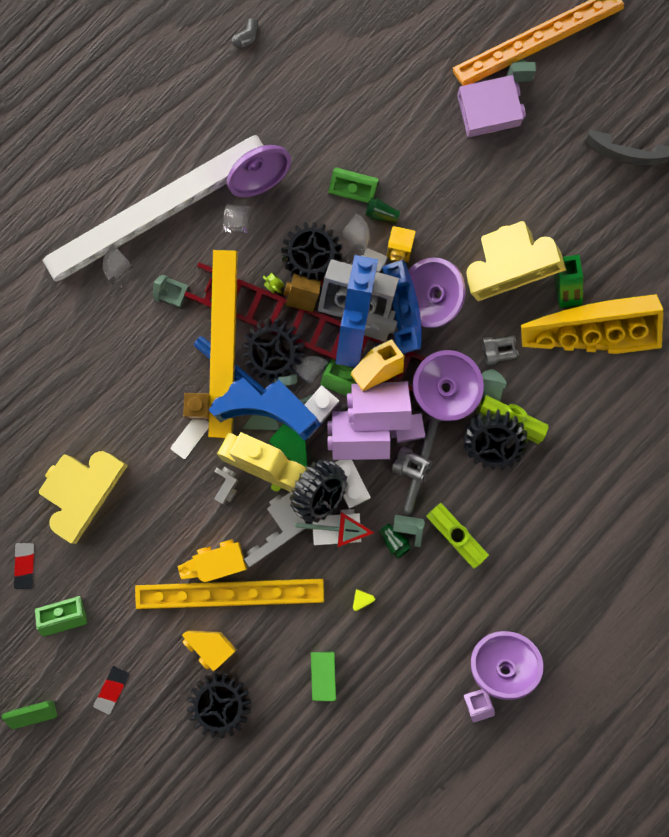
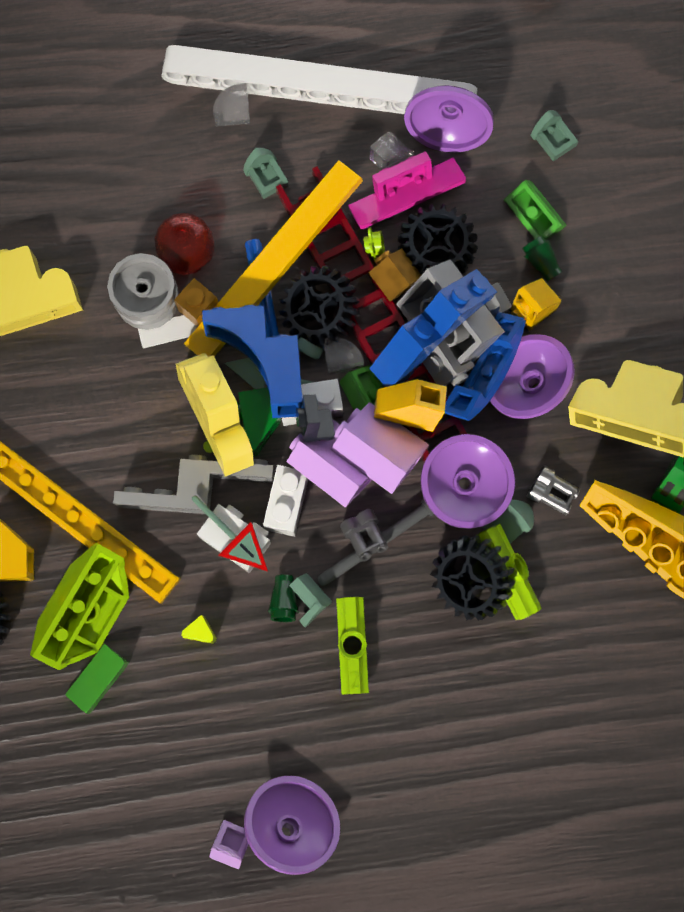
camera: 35 degrees right, 5 degrees down
(145, 420) = (148, 275): none -> light grey wheel
(156, 375) = (184, 243): none -> clear red cylinder
(214, 563) = (83, 473): yellow hinge -> none
(227, 490) = (158, 409): light grey bracket -> none
(264, 233) = (405, 187): none -> dark pink bracket
(281, 643) = (81, 609): none -> lime wedge
(318, 491) = (244, 479): black gear -> none
(327, 128) = (553, 135): none -> sand green tile
(332, 423) = (314, 423): none -> black bracket
(357, 233) = (500, 259): clear brick -> none
(415, 433) = (393, 503): lavender brick -> none

